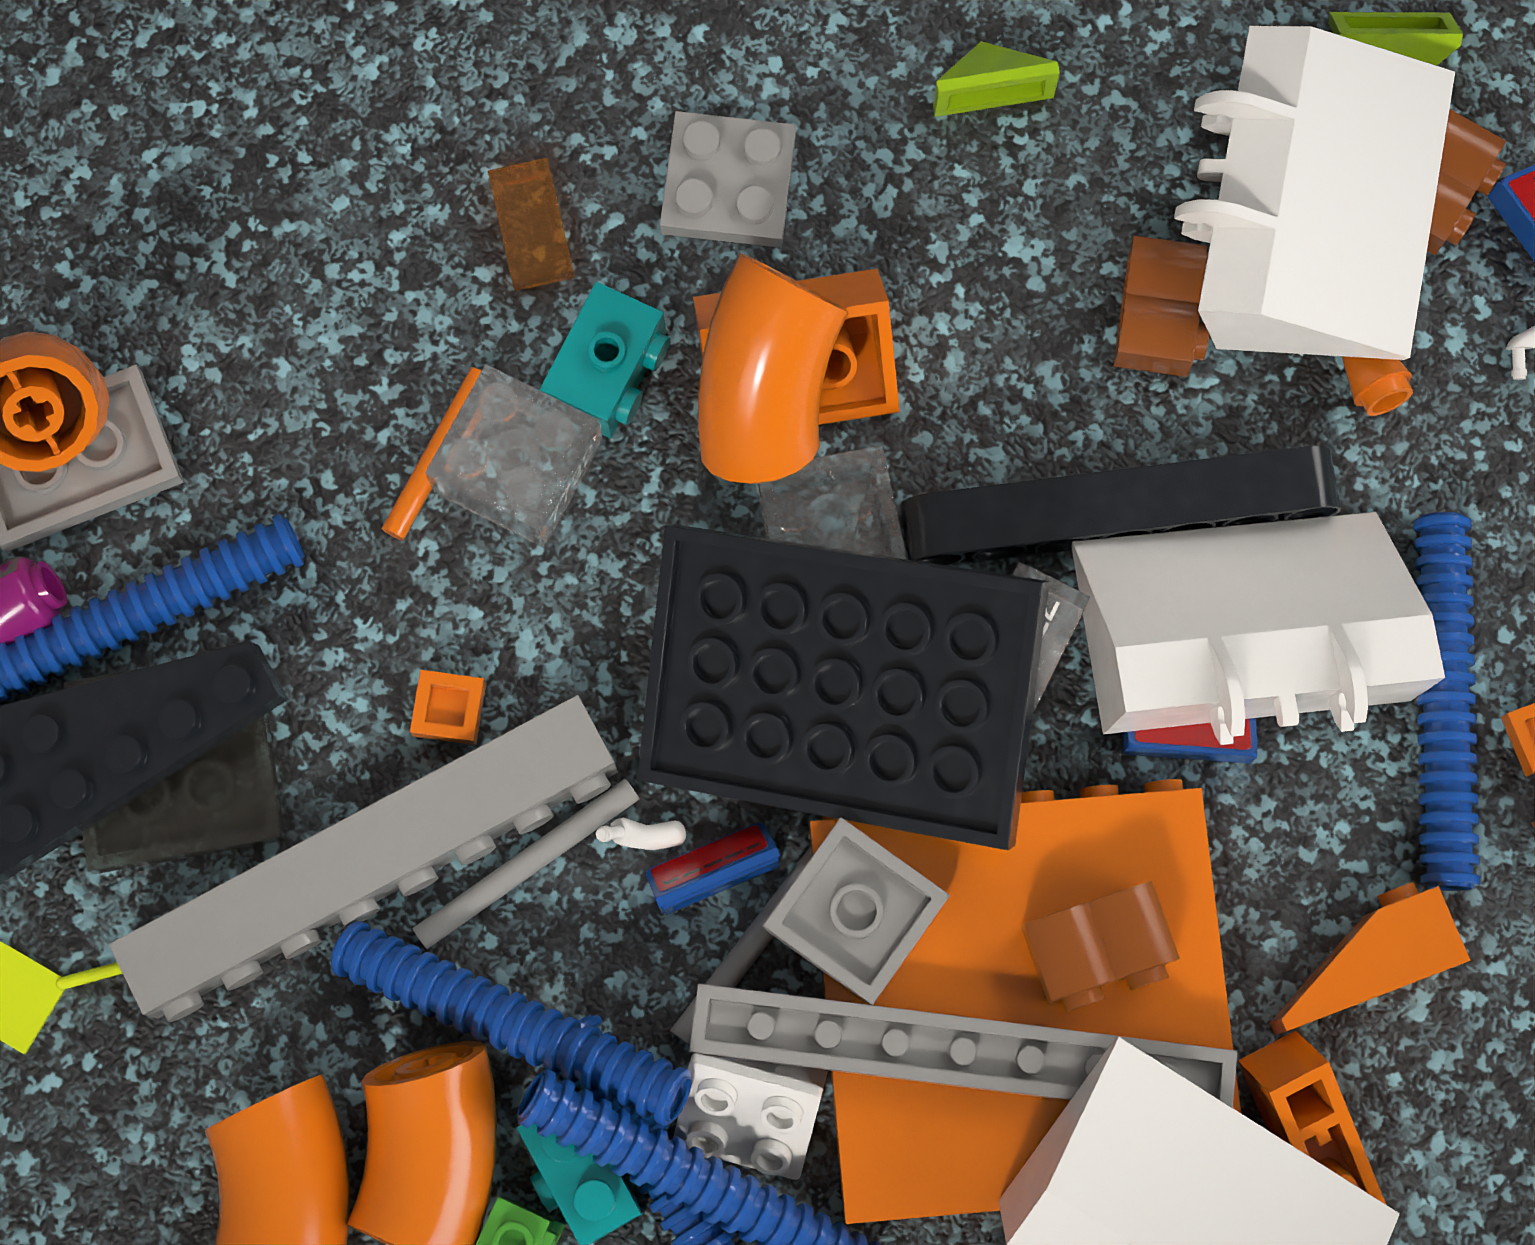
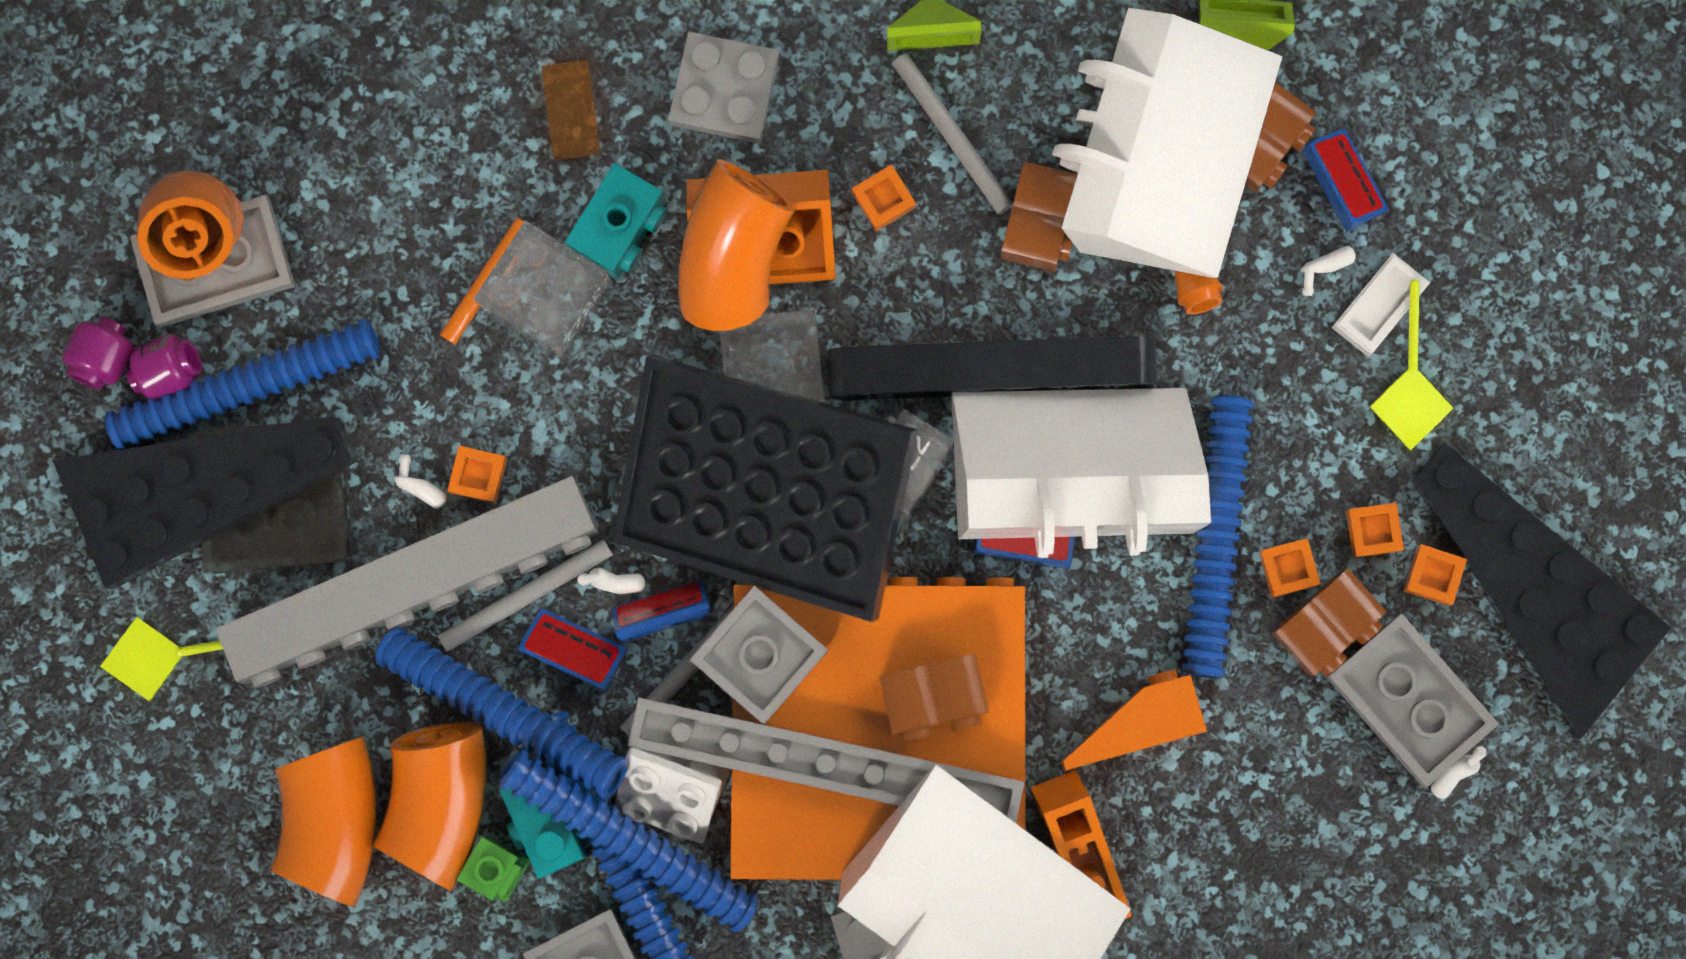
camera: 10 degrees right, 5 degrees up
(370, 731) = (418, 487): none -> white piece
(597, 930) = (573, 649): none -> red slope
(952, 300) = (883, 198): none -> orange plate
(1032, 212) = (952, 133): none -> light grey bar

